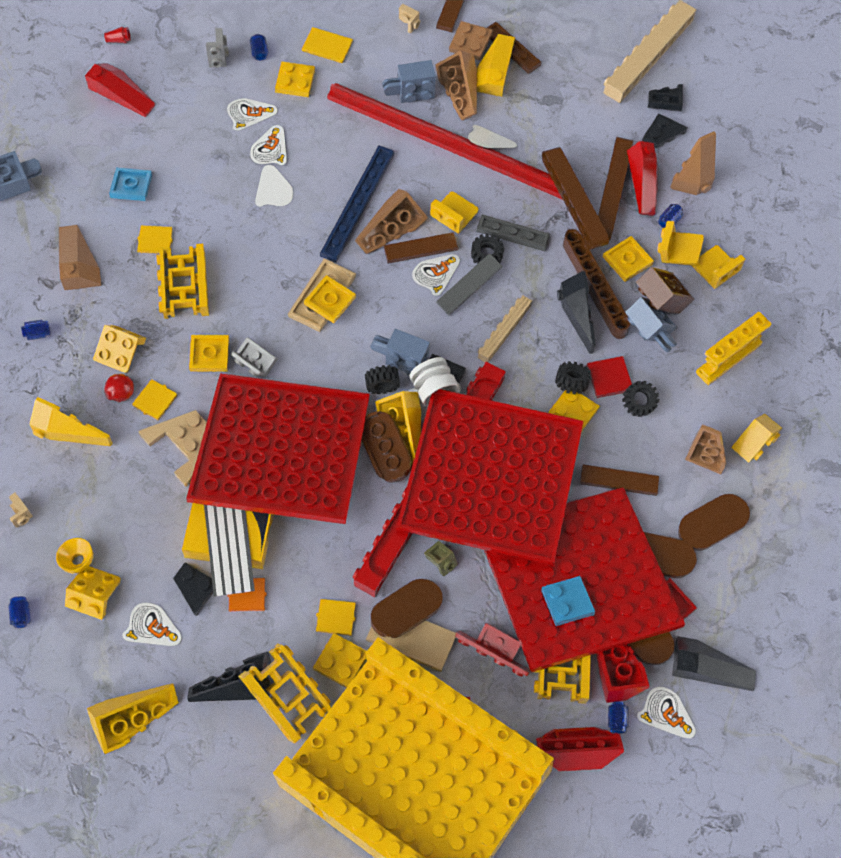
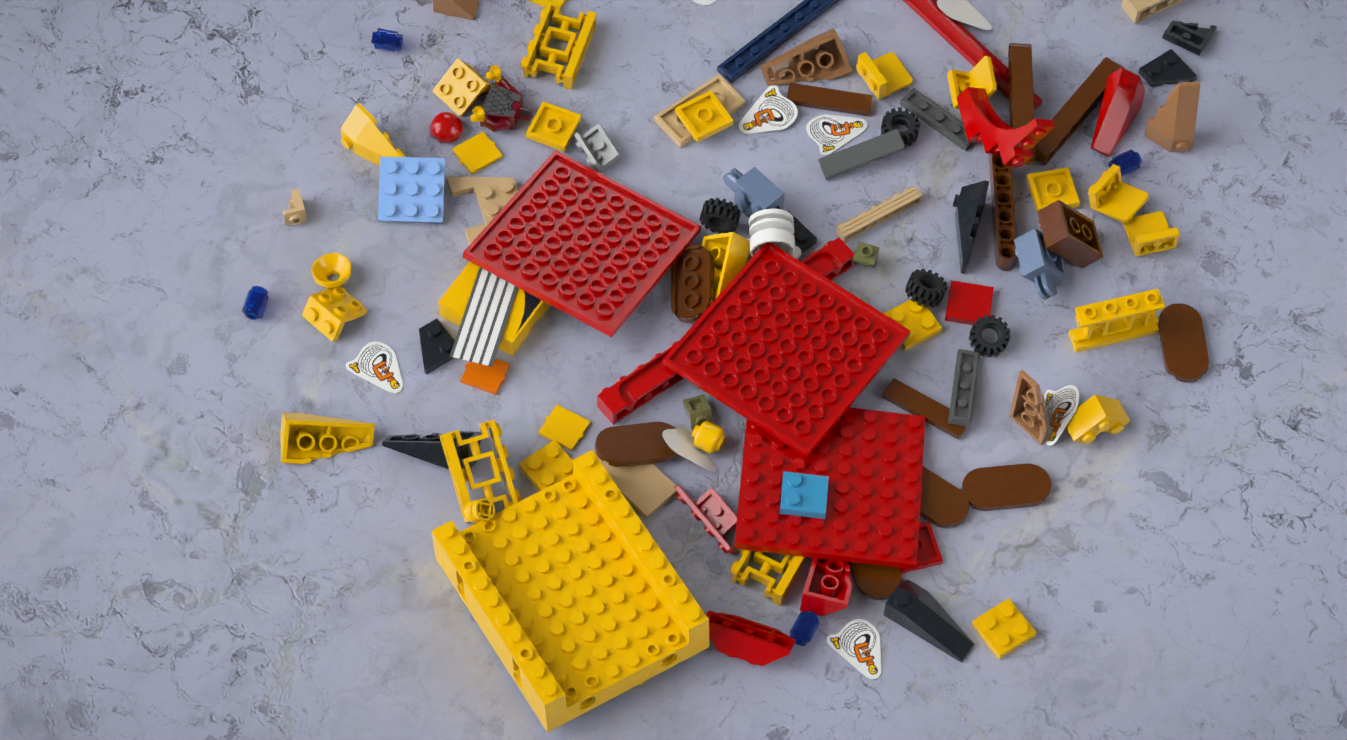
camera: 25 degrees right, 5 degrees down
(113, 455) = (411, 189): none -> light blue plate
(158, 351) = (502, 105): none -> torso
(302, 730) = (479, 510): none -> yellow wheel
(378, 276) = (769, 113): none -> sticker
(448, 594) = (683, 444): none -> white sticker
(461, 578) = (708, 437): none -> yellow head
(514, 367) = (866, 254): none -> olive bracket
(530, 195) = (979, 77): none -> yellow bracket
(573, 232) = (998, 138): none -> red arch
(641, 451) = (963, 388): none -> dark grey tile
(731, 438) = (1059, 410): none -> sticker
(772, 647) = (1003, 628): none -> yellow plate
(787, 347) = (1183, 342): none -> reddish brown tile

